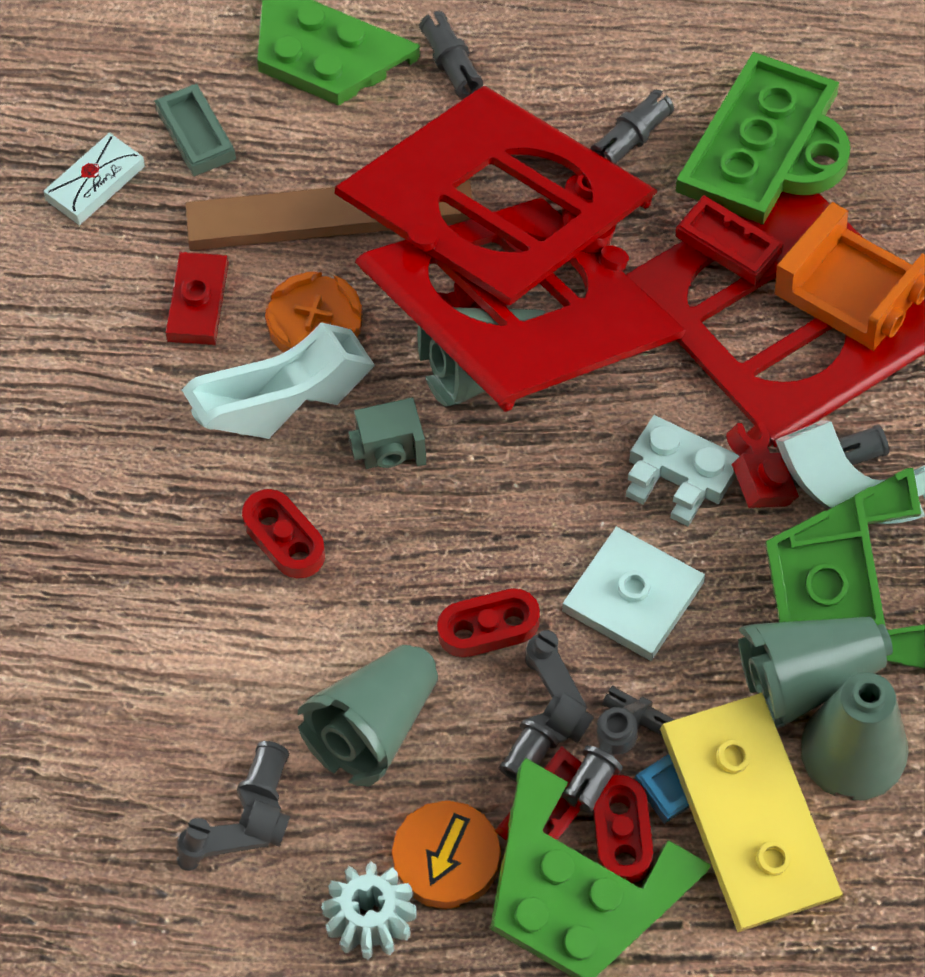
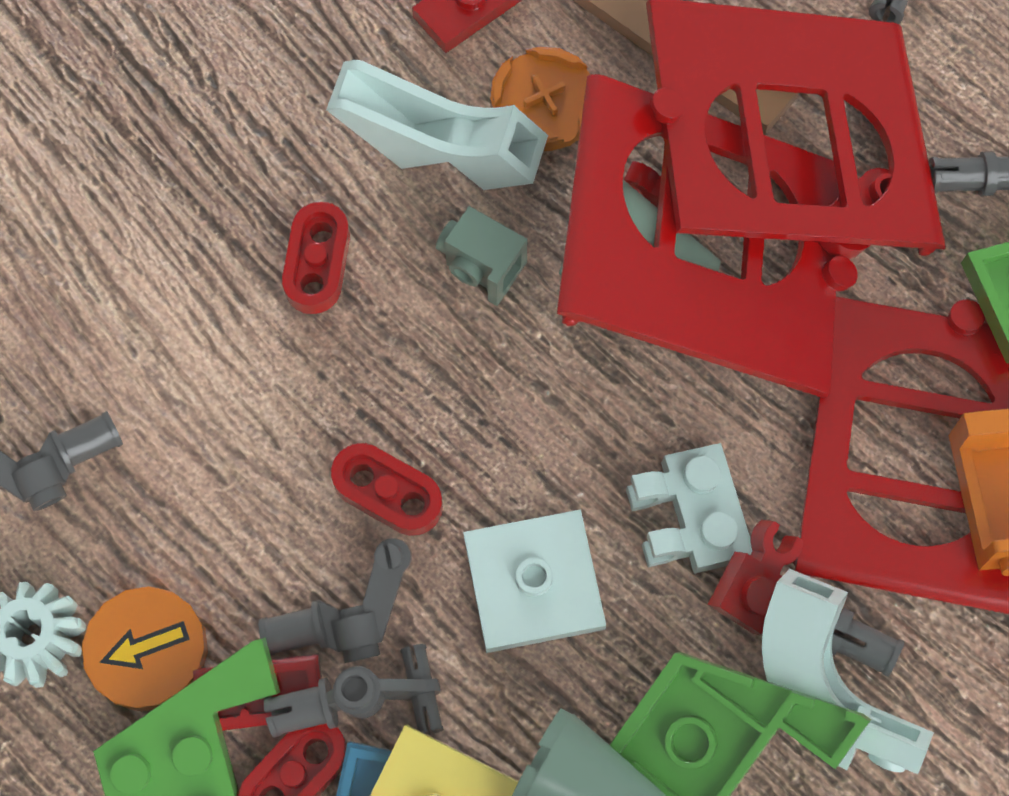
camera: 45 degrees right, 10 degrees up
(368, 713) = (211, 472): sand green cone -> none
(729, 240) = (957, 349): red plate -> none

